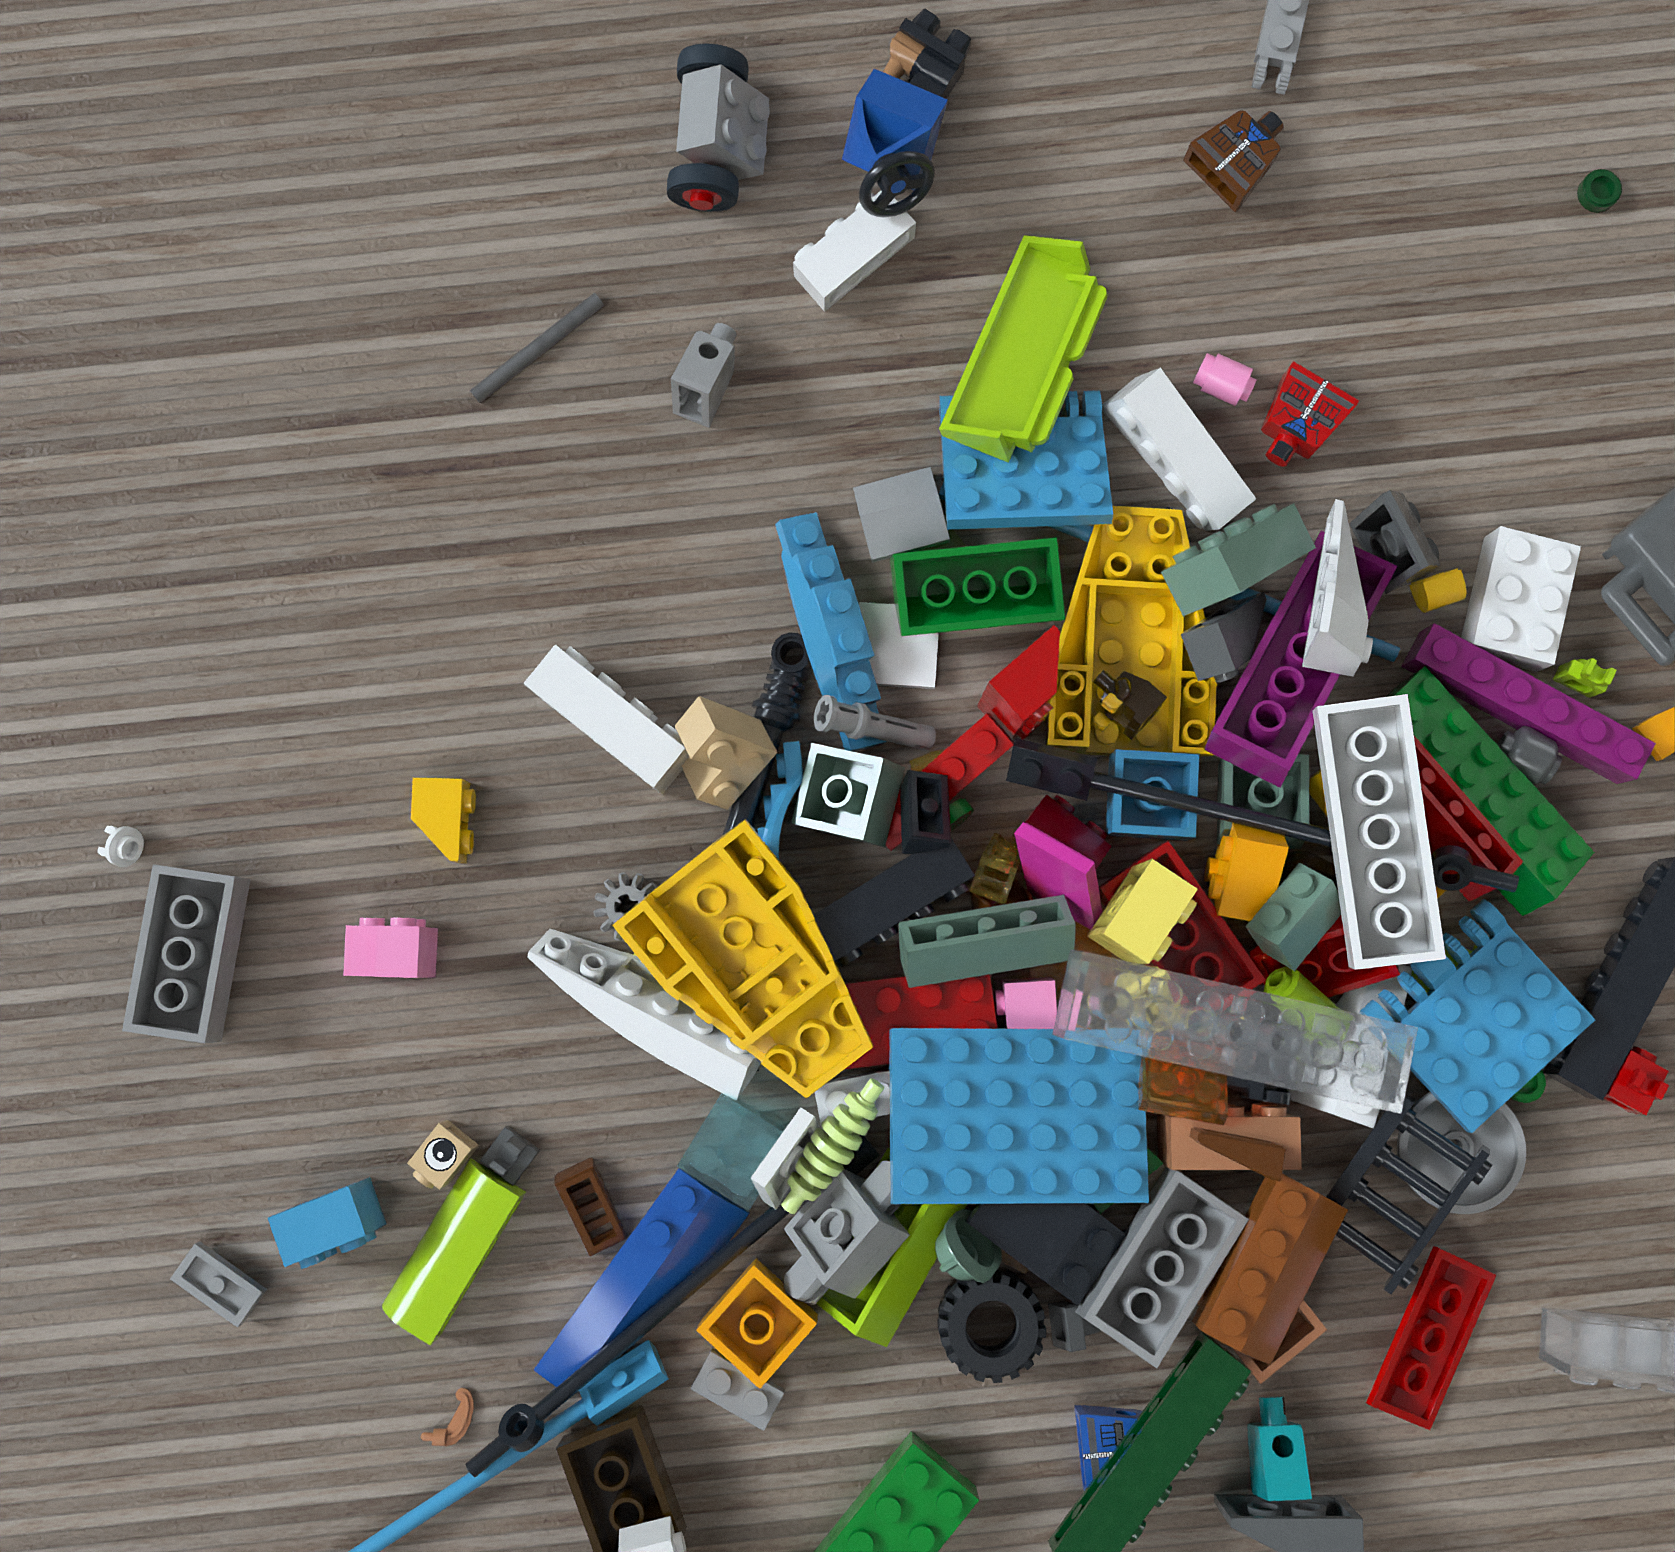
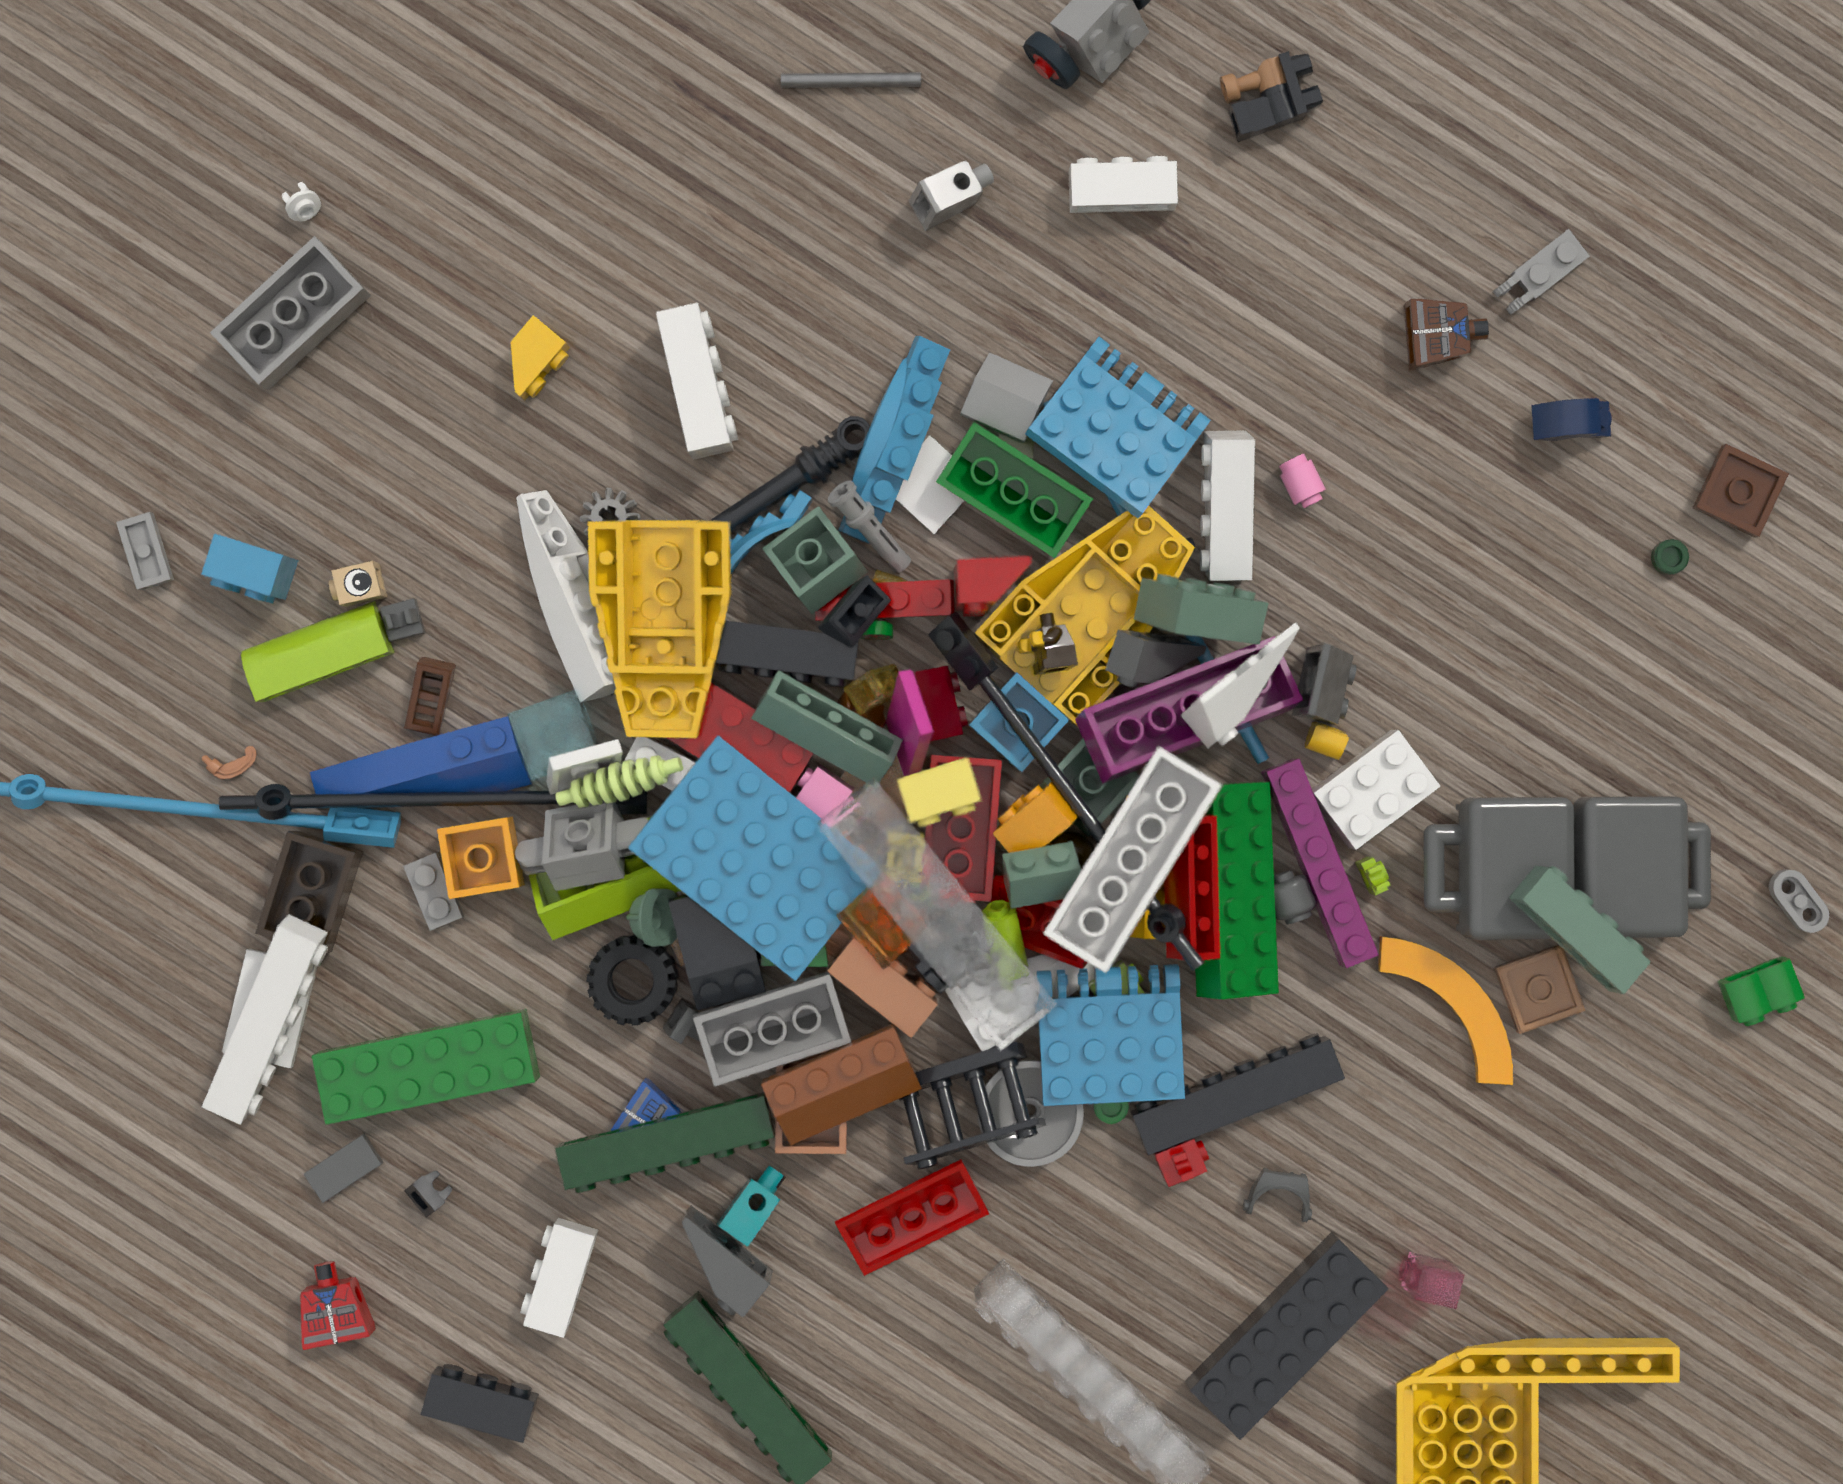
camera: 40 degrees right, 5 degrees up
(395, 950) = (431, 423): bright pink brick -> none
(723, 751) = (754, 464): tan brick -> none
(894, 141) = (1204, 136): blue piece -> none
(1025, 349) = (1180, 352): lime slope -> none
(1256, 1154) = (884, 998): reddish brown slope -> none
(1303, 414) = (1334, 549): red torso -> none
(1415, 138) = (1571, 419): none -> dark blue brick
(1613, 84) = (1740, 490): none -> reddish brown plate

